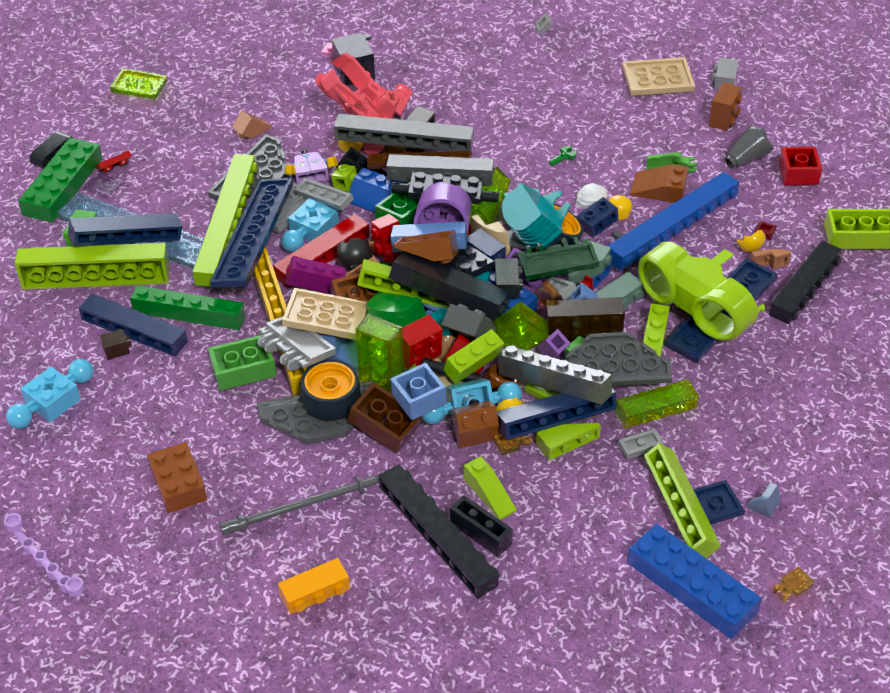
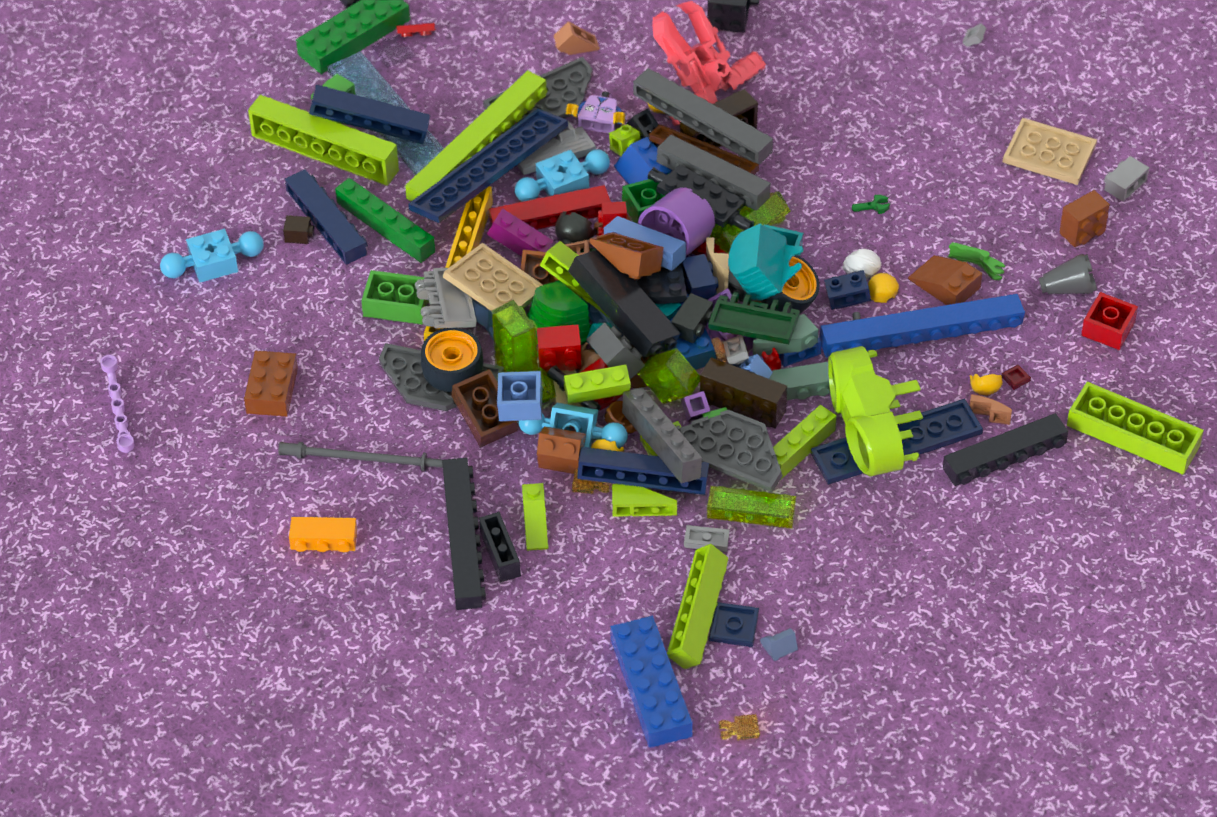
camera: 30 degrees right, 5 degrees up
(324, 194) = (585, 151): light grey plate -> none

